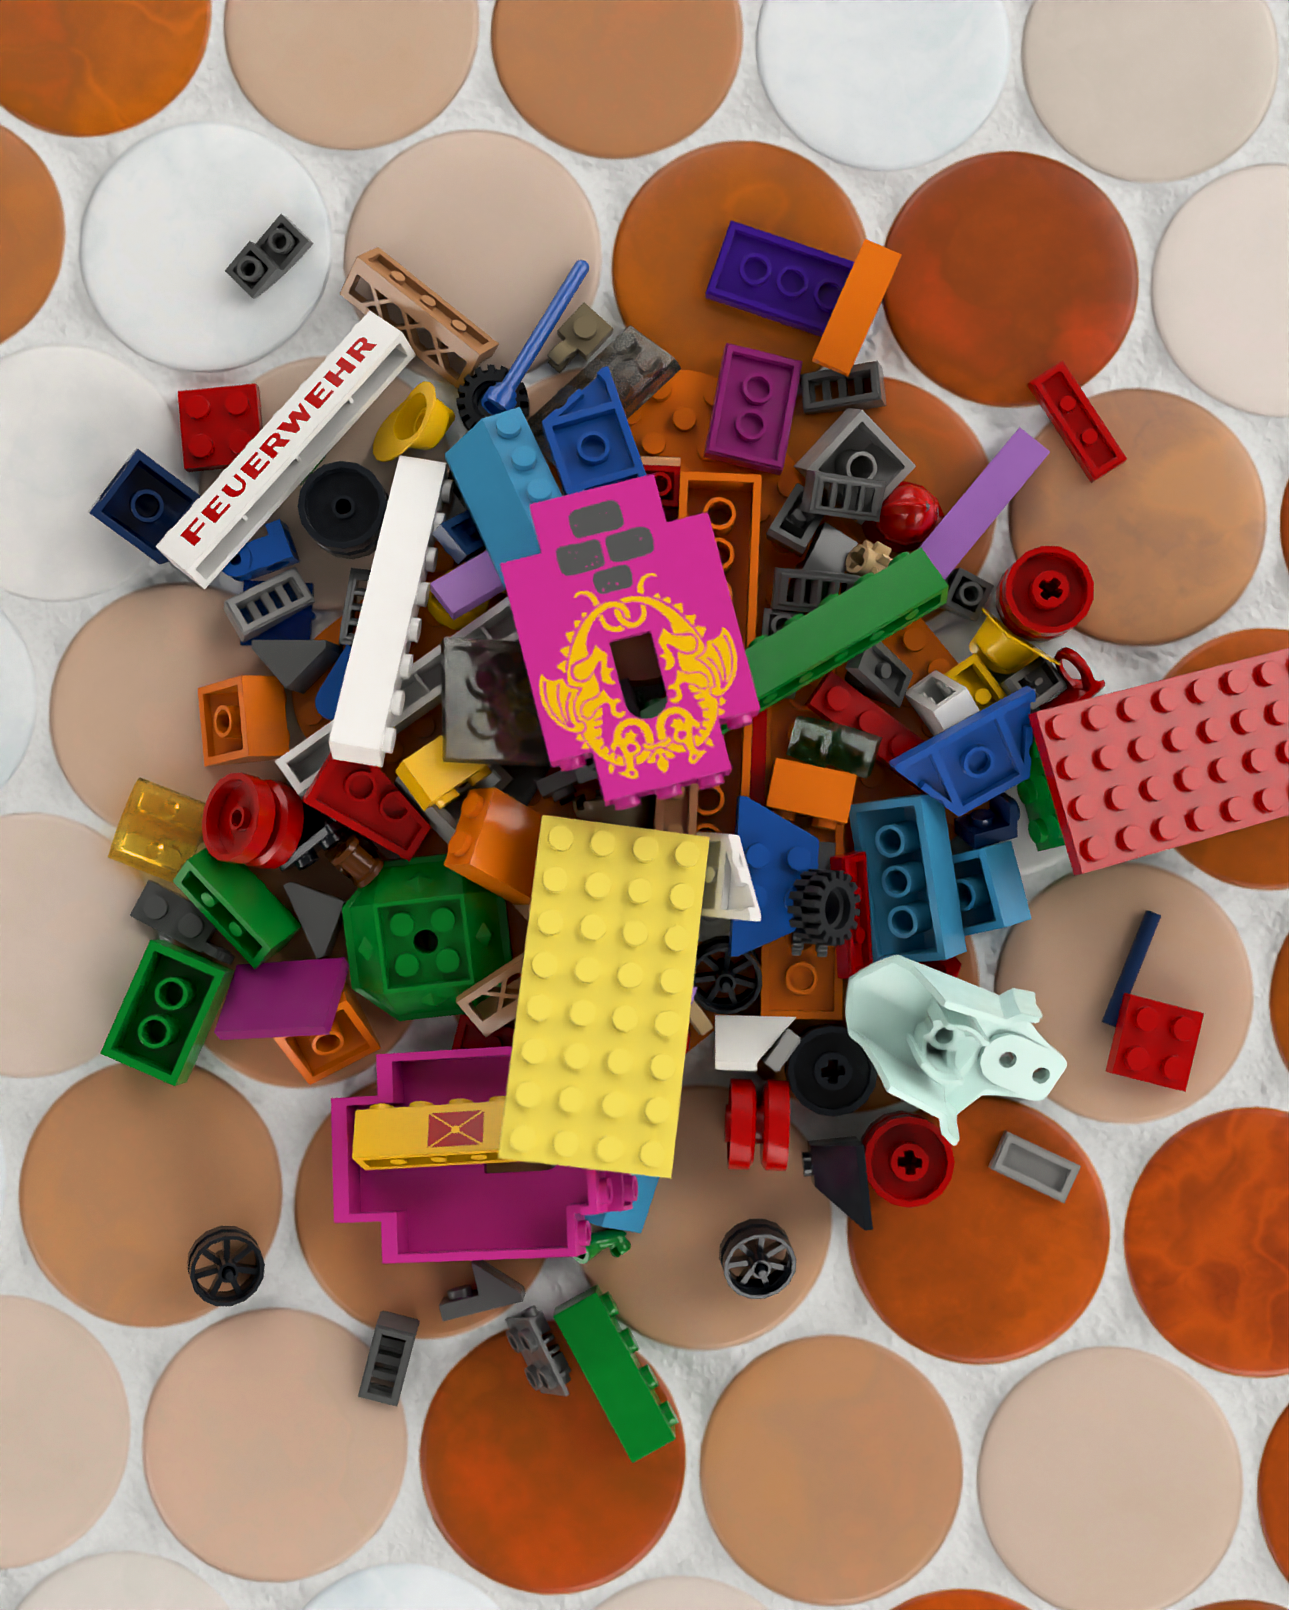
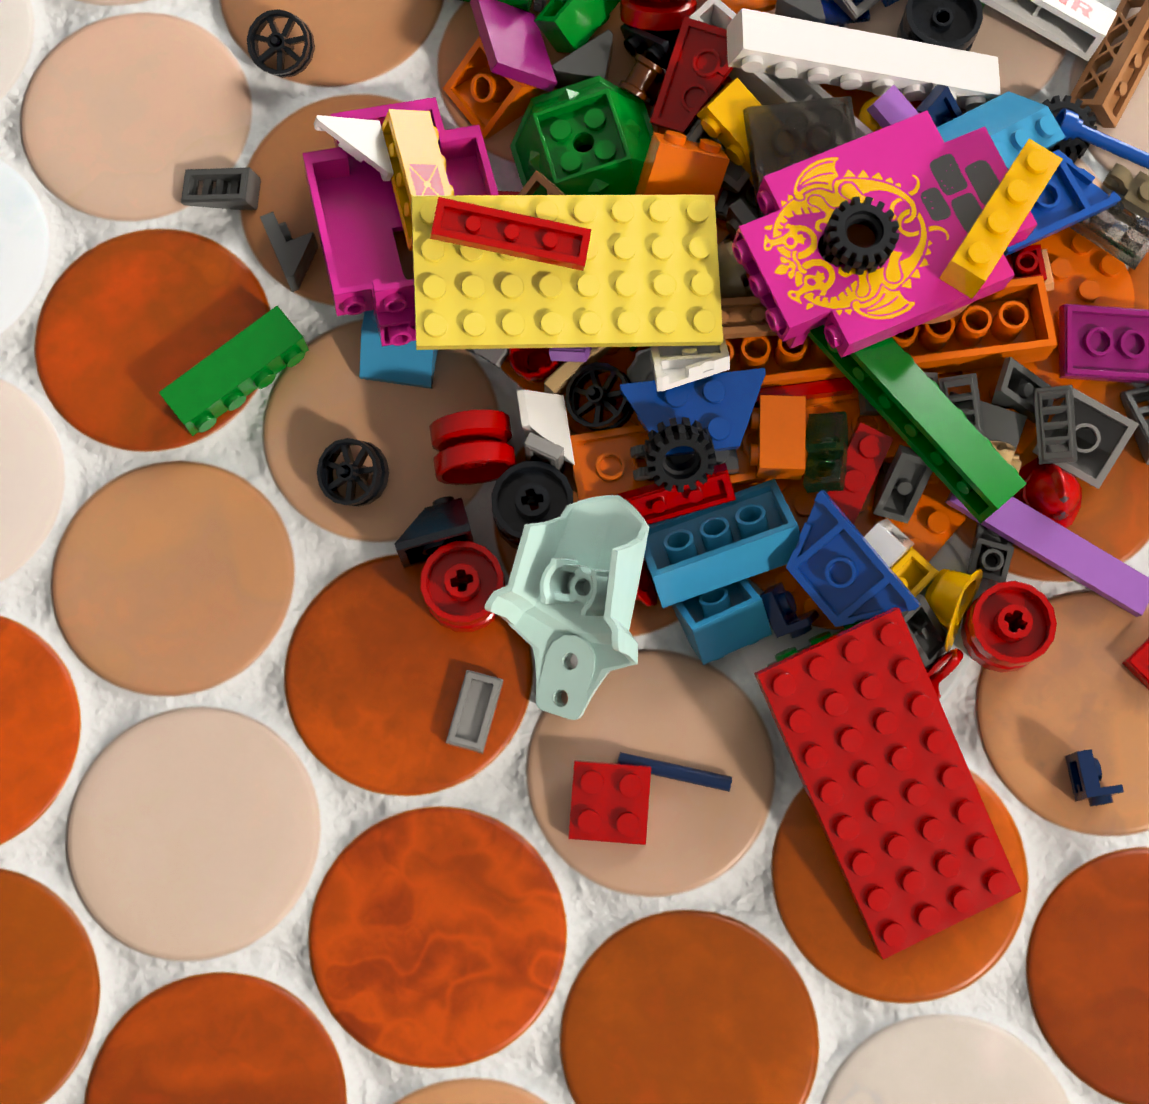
camera: 75 degrees right, 10 degrees down
(378, 1193) = (360, 139): none -> white tile
(414, 424) = (1027, 73): yellow piece -> none
(543, 1370) = (255, 289): dark grey hinge -> none
(567, 1055) = (510, 233): none -> red plate
(600, 1240) = (346, 339): green arm -> none
(638, 645) = (869, 216): none -> black tyre
(651, 515) = (1000, 219): none -> yellow brick
(1207, 551) = (1085, 776): none -> dark blue bracket

